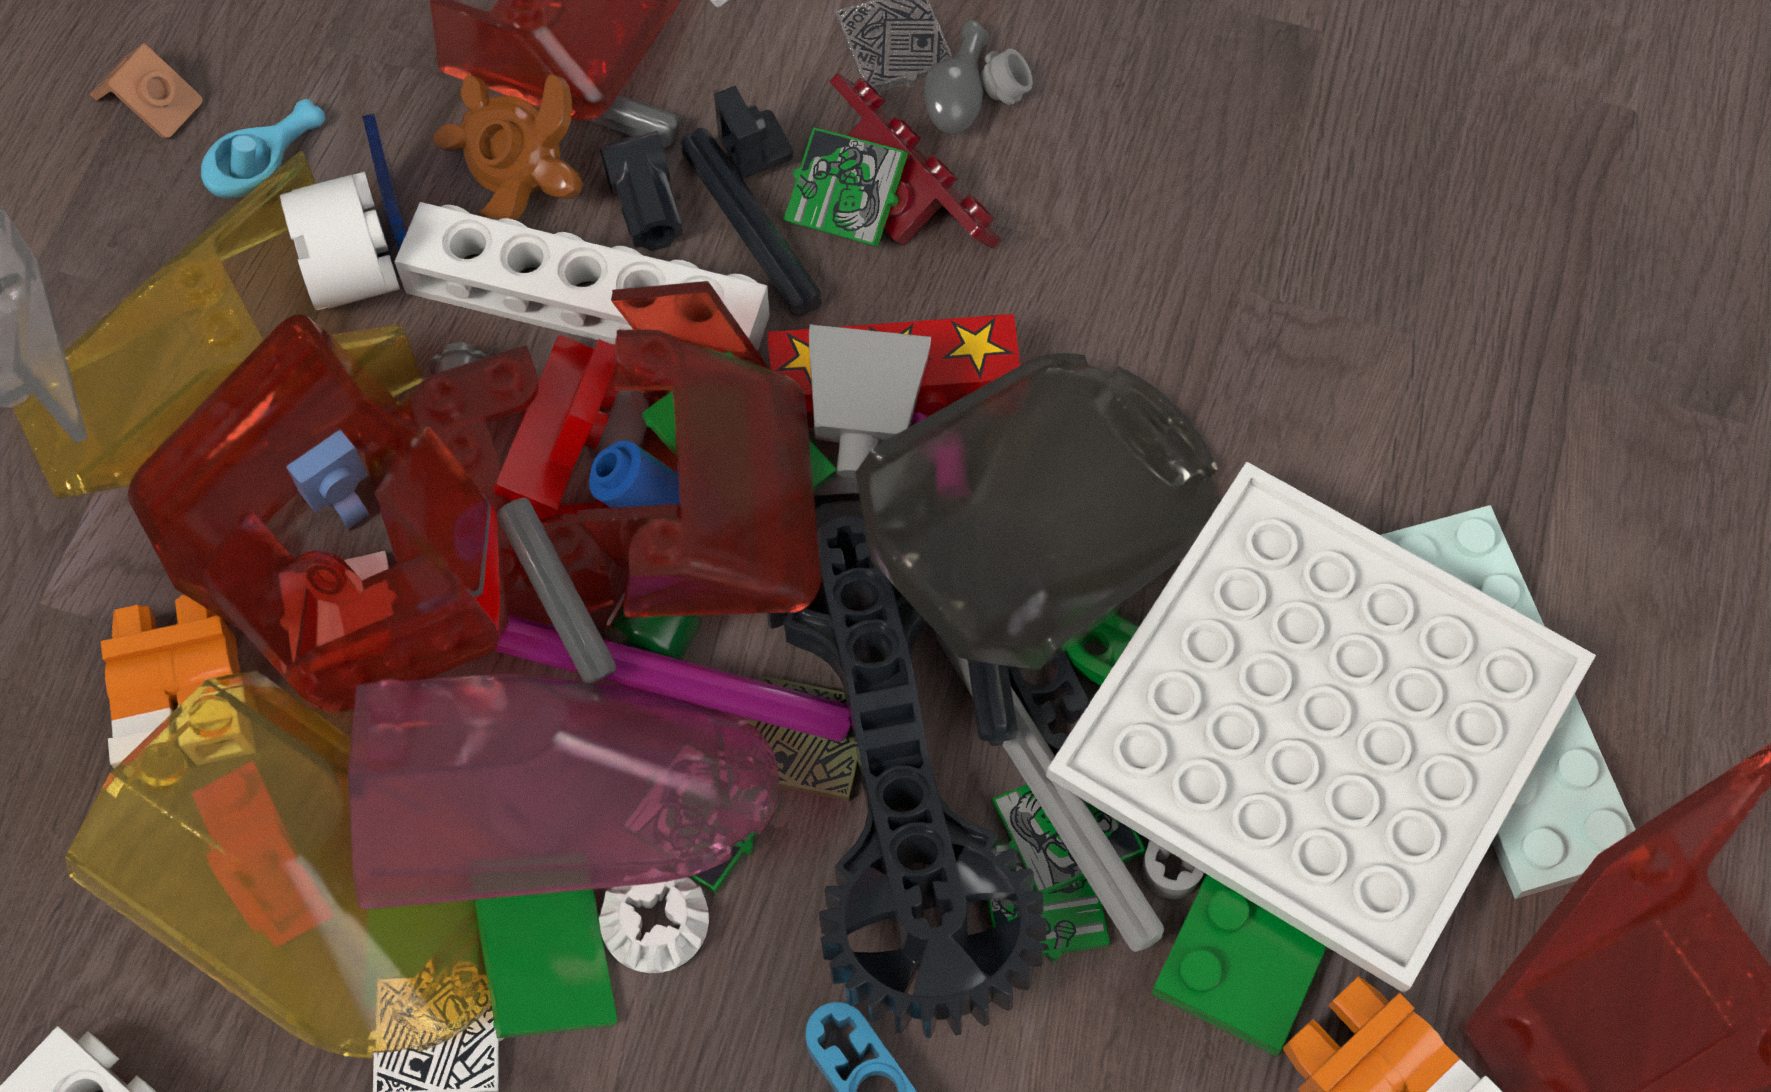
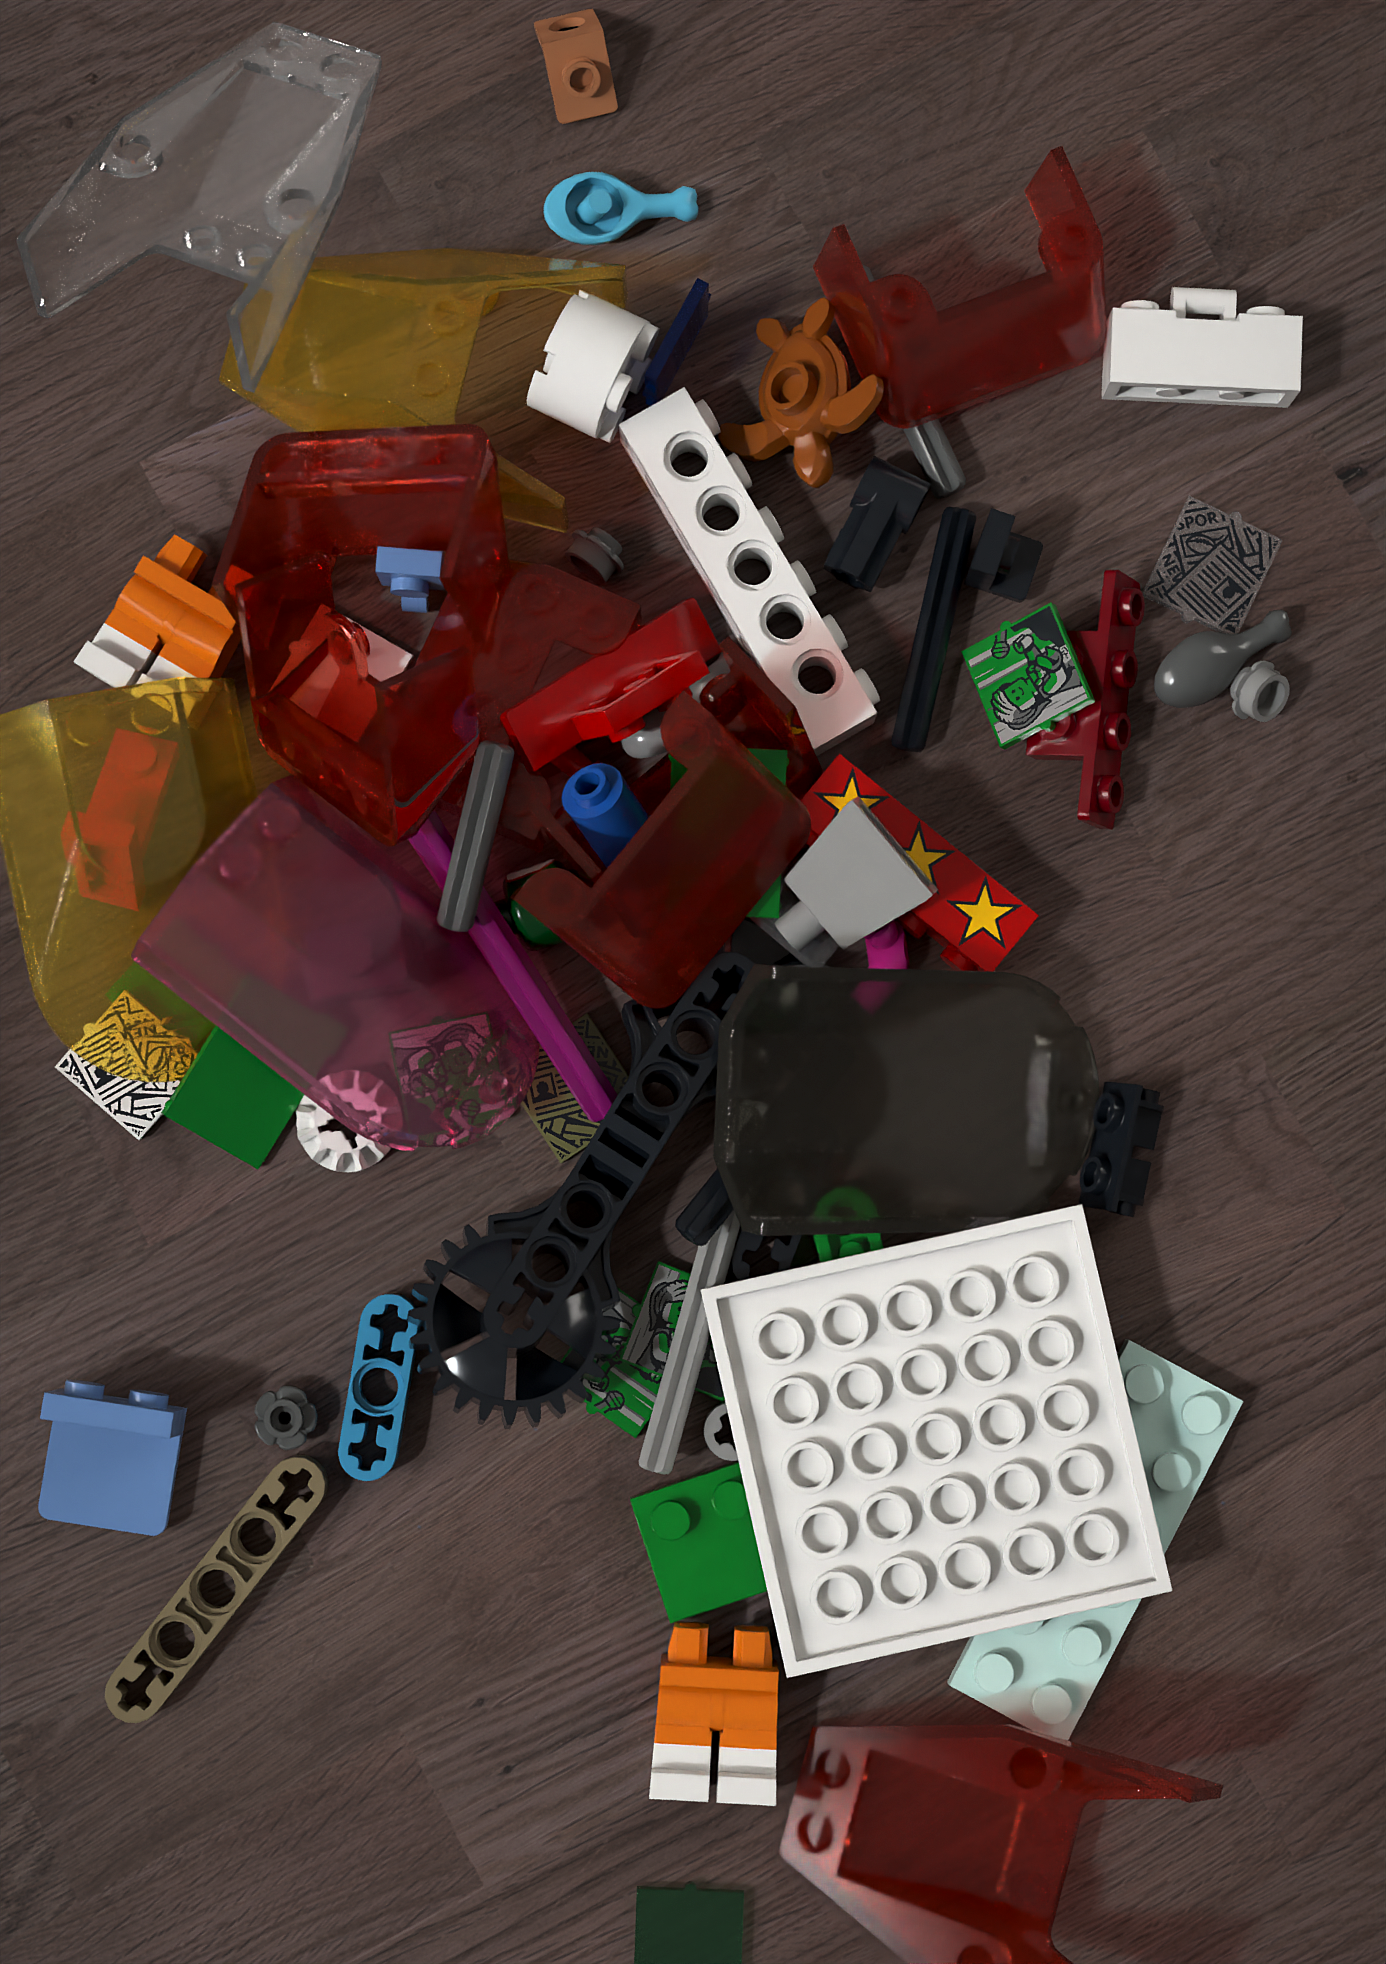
camera: 45 degrees right, 20 degrees up
(1217, 412) = (1123, 1119): none -> black hinge

